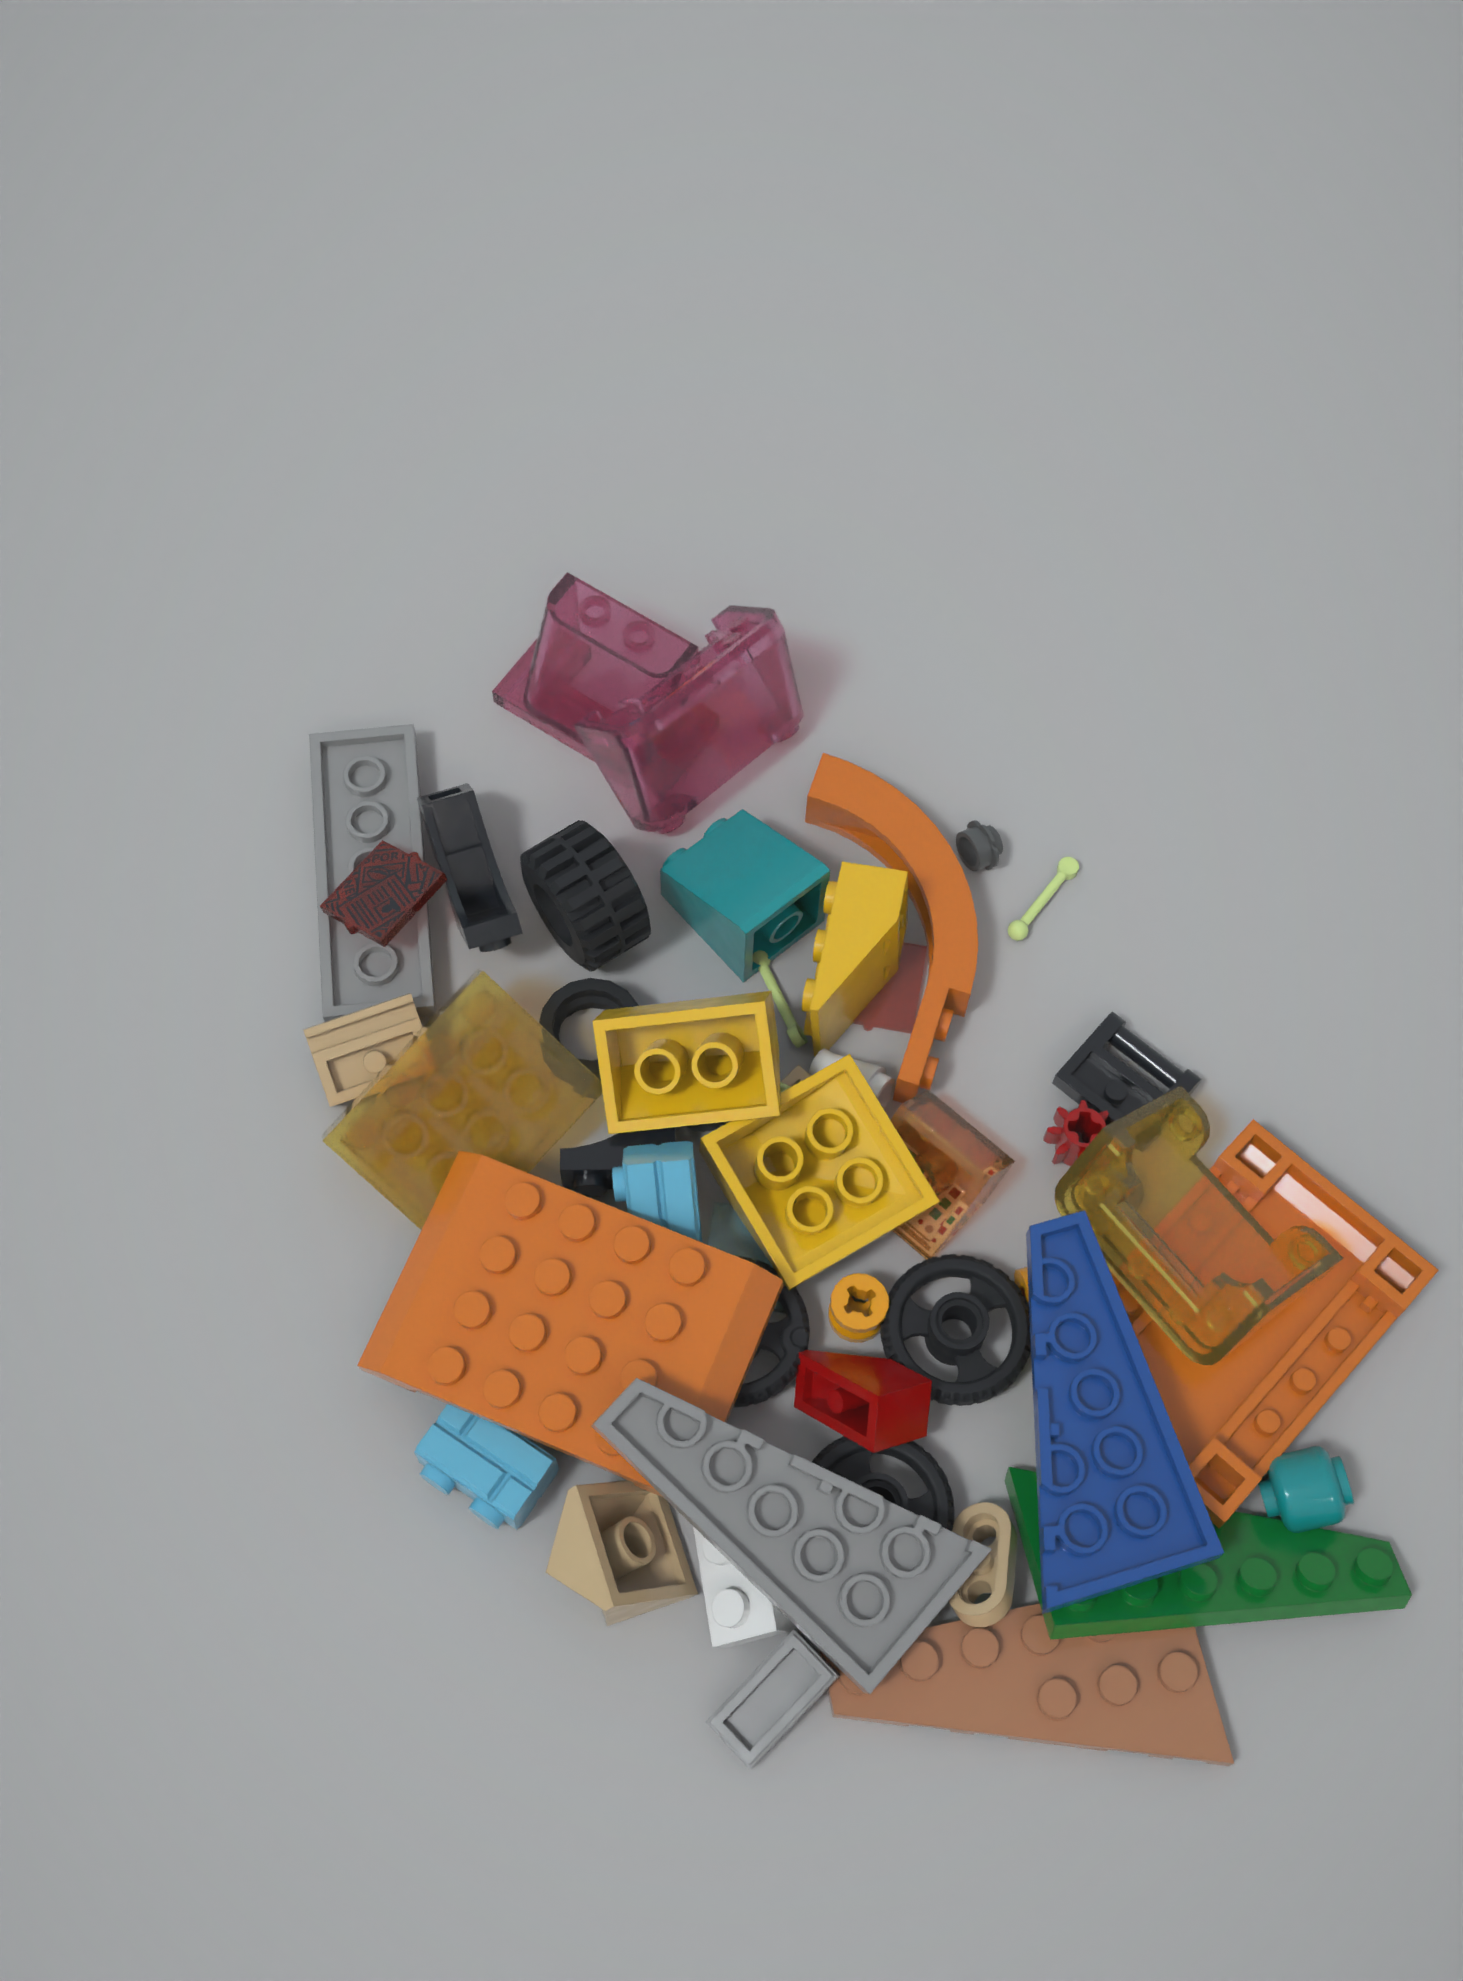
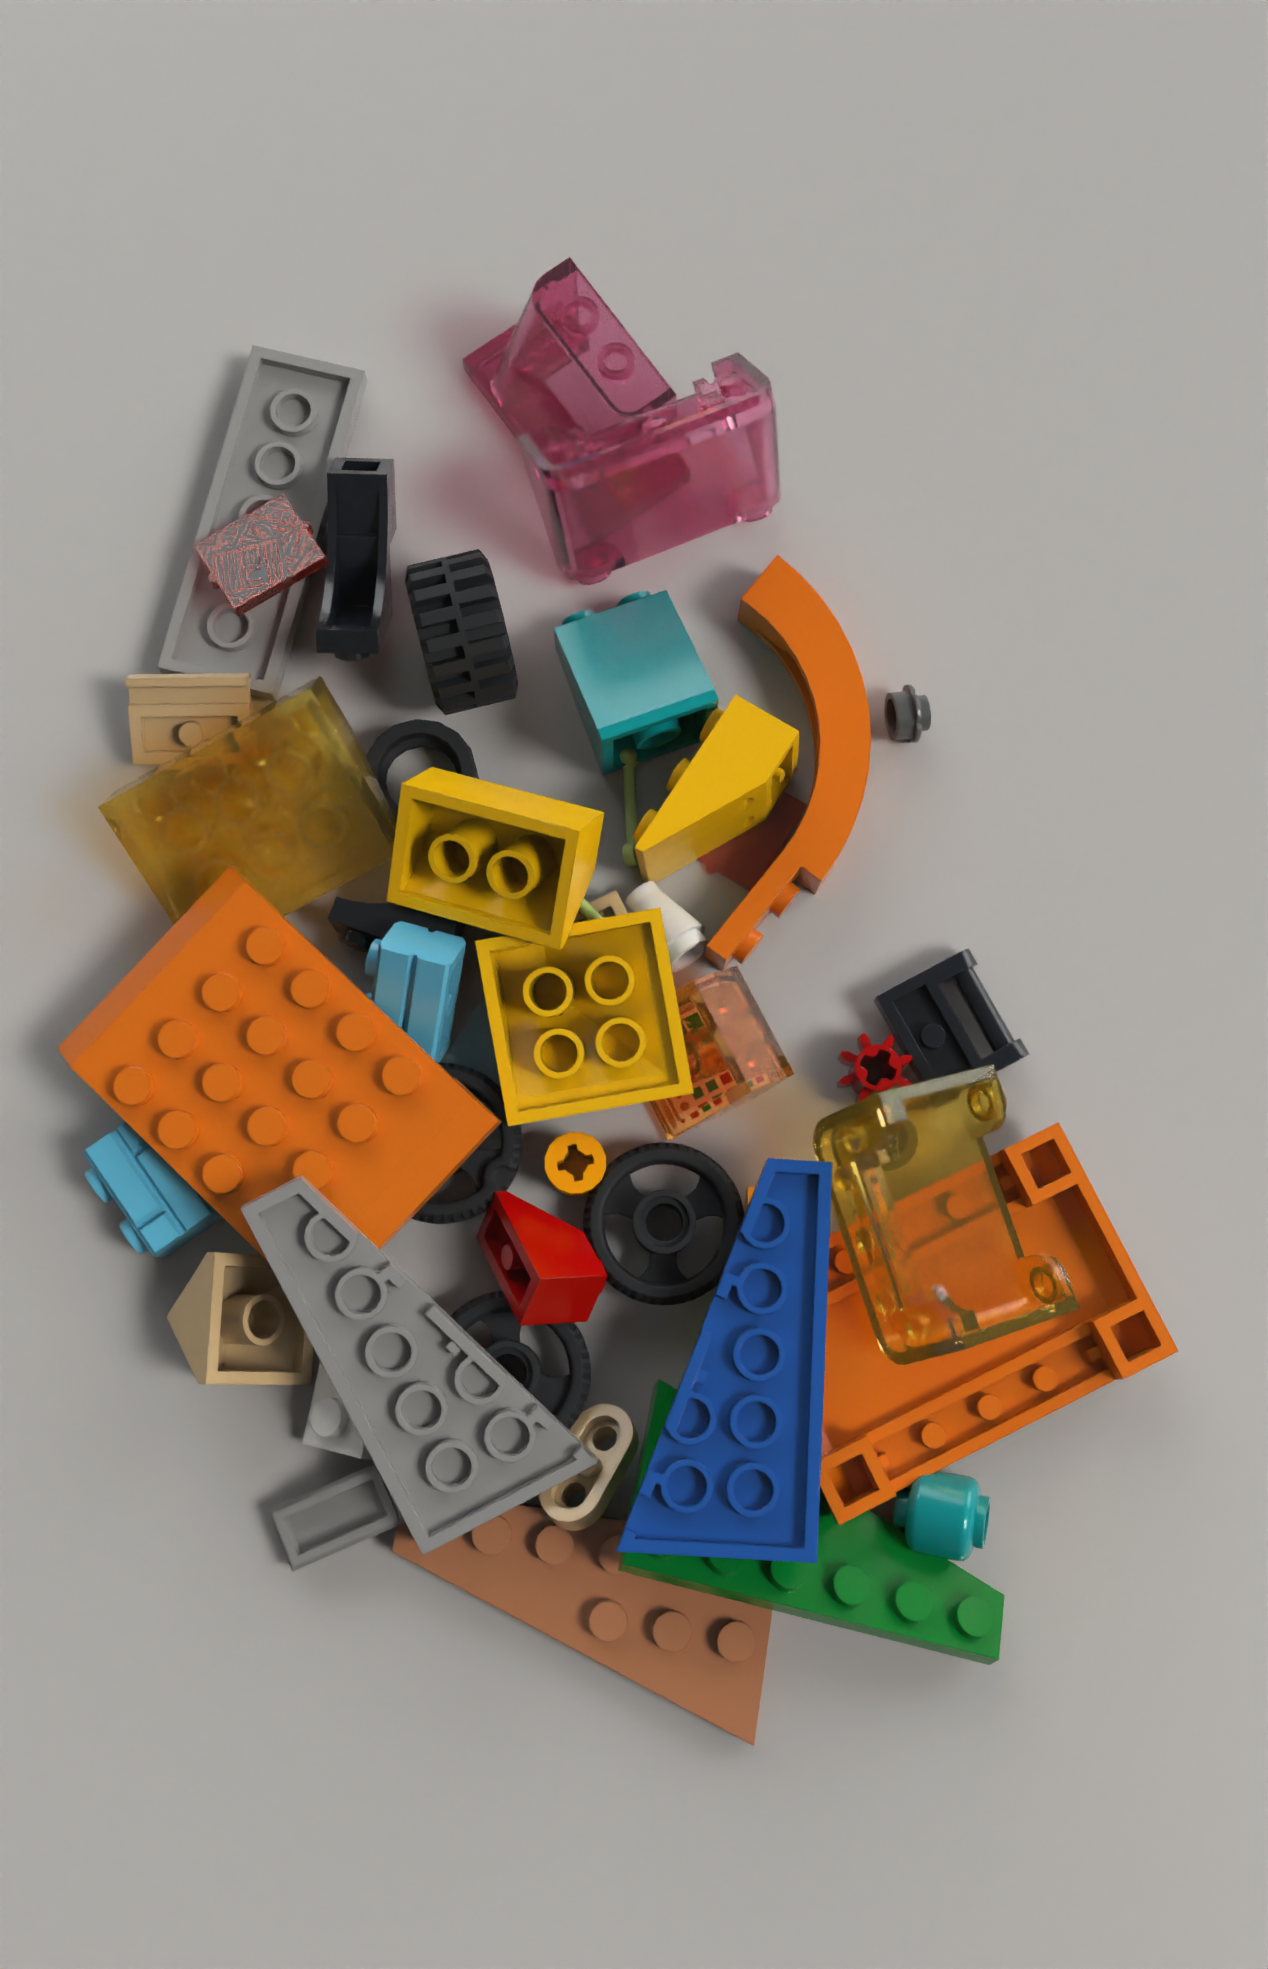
camera: 20 degrees right, 15 degrees up
(1066, 870) = (991, 772): yellowish green hinge -> none

